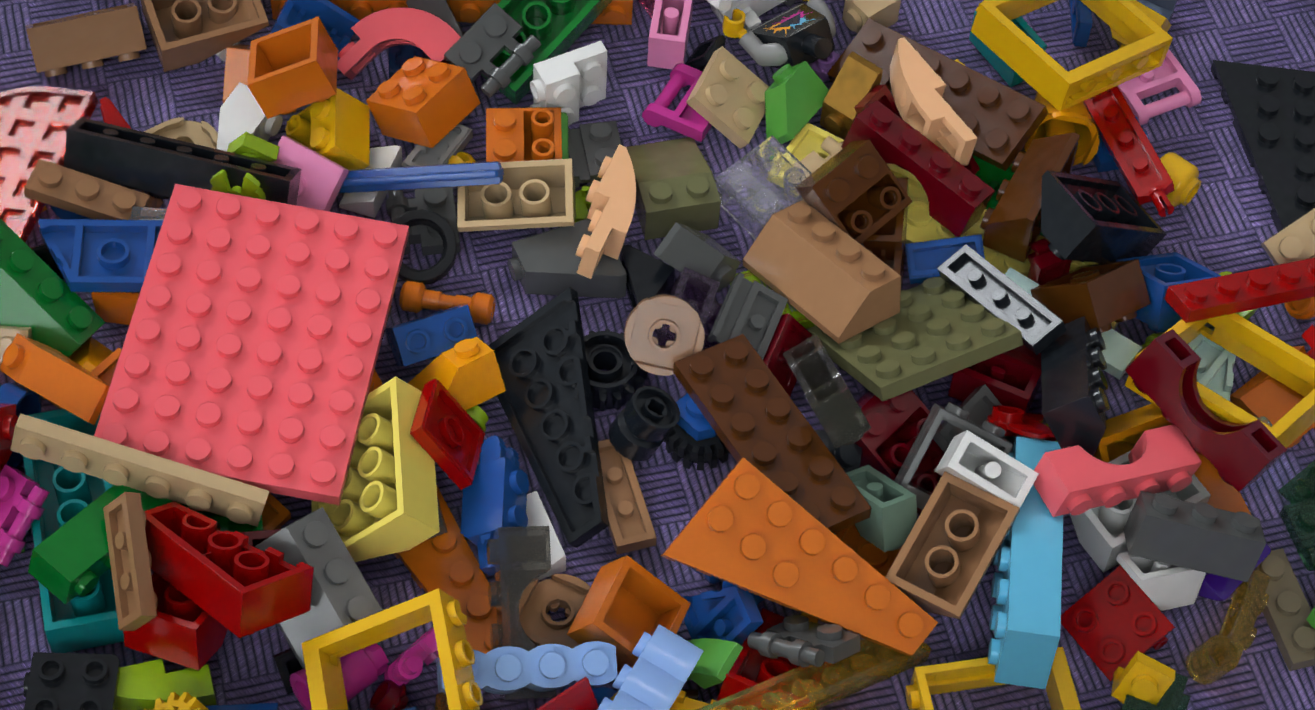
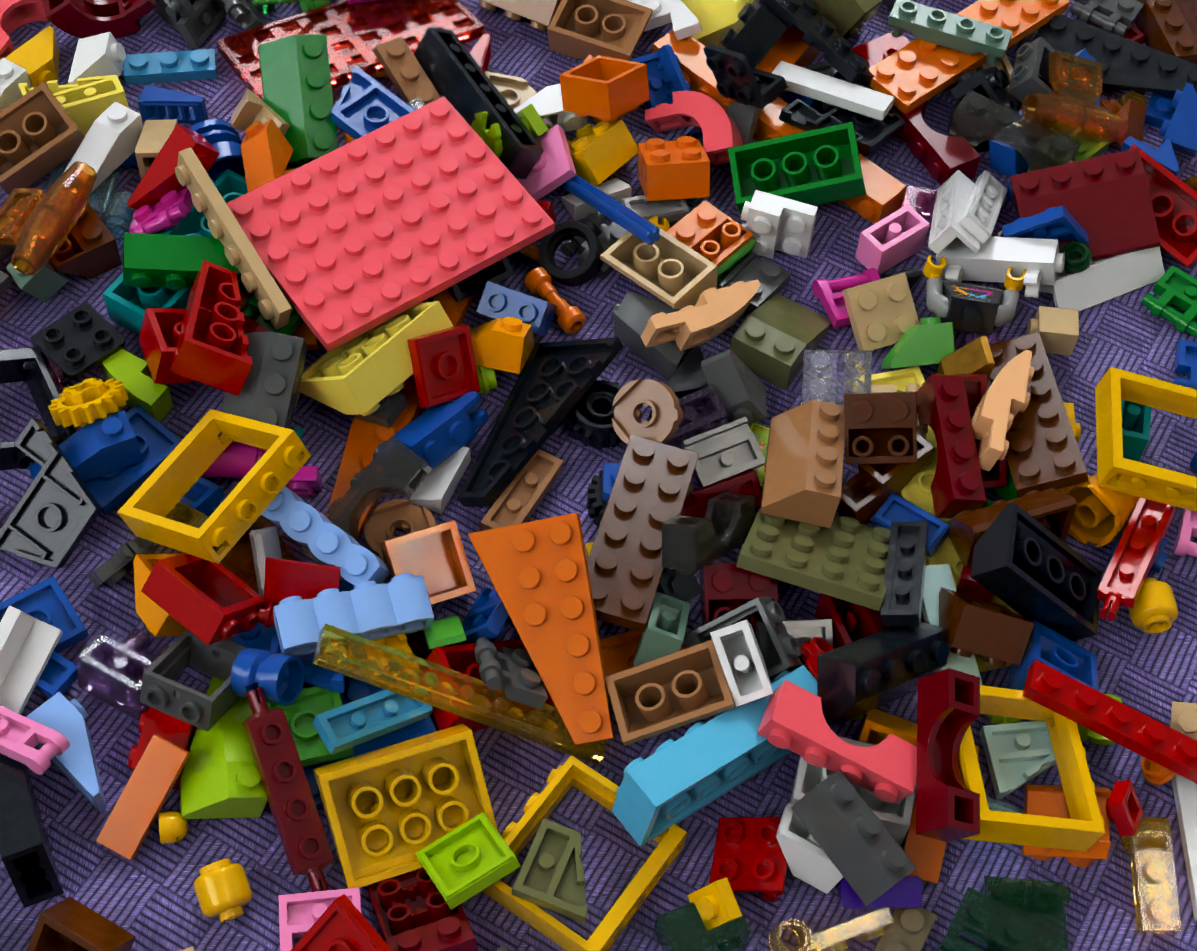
camera: 45 degrees right, 0 degrees up
(130, 561) = (168, 283): medium nougat plate -> none
(485, 42) = (740, 157): dark grey plate -> none
(644, 423) = (577, 460): black wheel -> none

